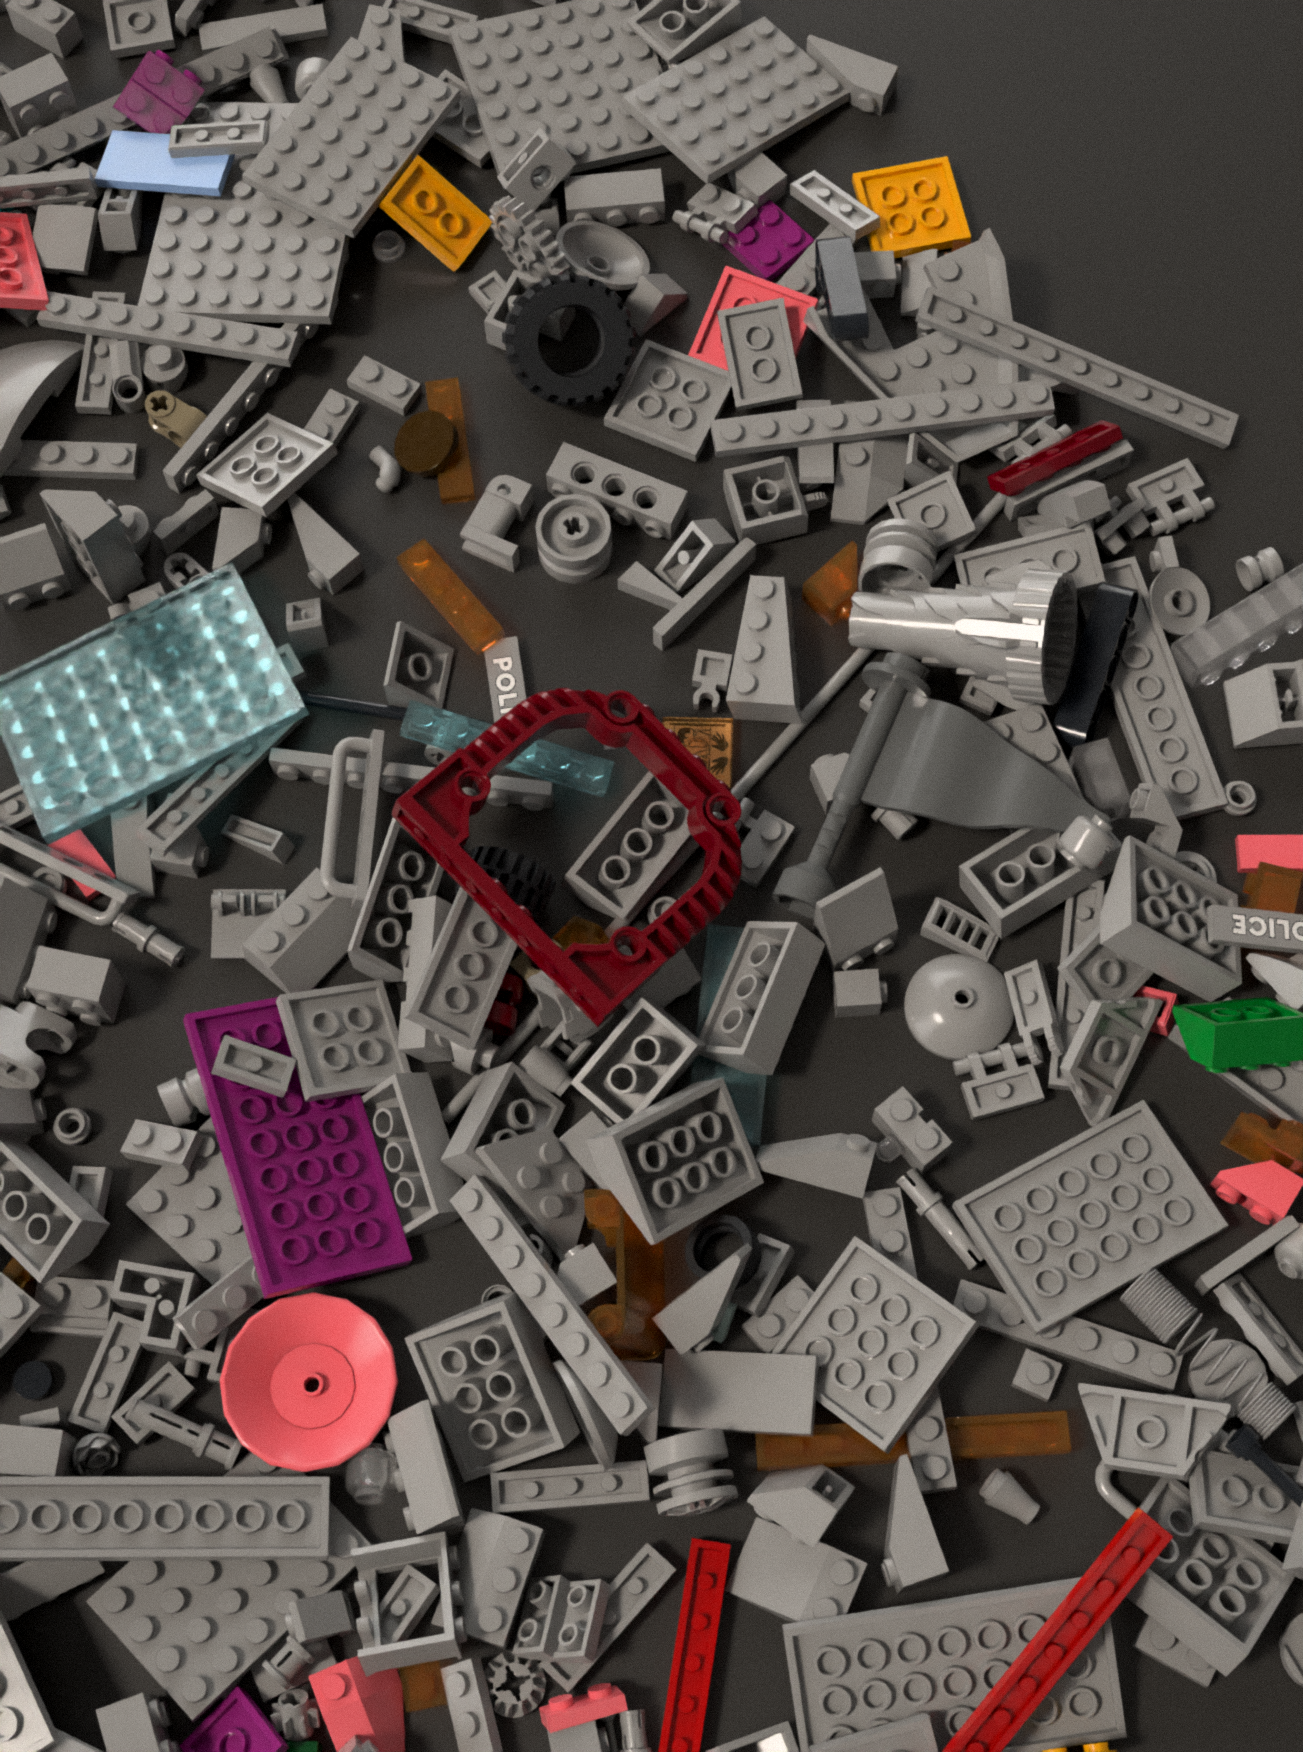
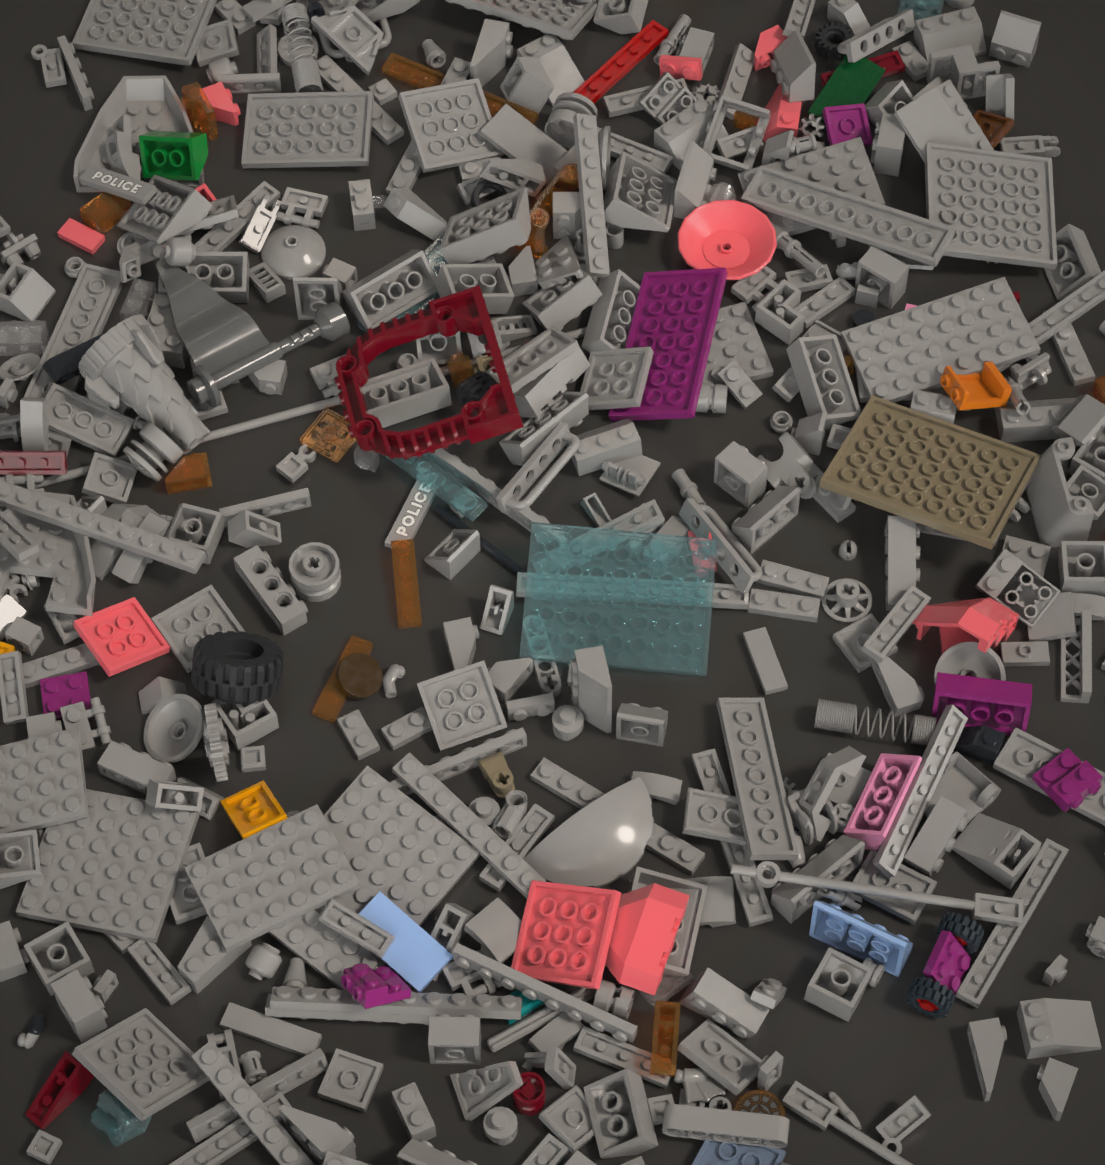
camera: 150 degrees left, 10 degrees down
(220, 1304) = (748, 290): light grey plate -> none
(253, 1066) = (670, 372): light grey plate -> none
(493, 519) = (351, 612): light grey piece -> none
(546, 1070) = (523, 316): light grey cone -> none
(645, 585) = (294, 533): light grey piece -> none
(759, 354) = (132, 610): light grey plate -> none
(765, 658) = (261, 449): light grey wedge -> none
(840, 285) = (59, 605): beam -> none
(940, 1217) = (376, 174): light grey pin -> none
(1106, 1052) = (240, 183): light grey wing -> none

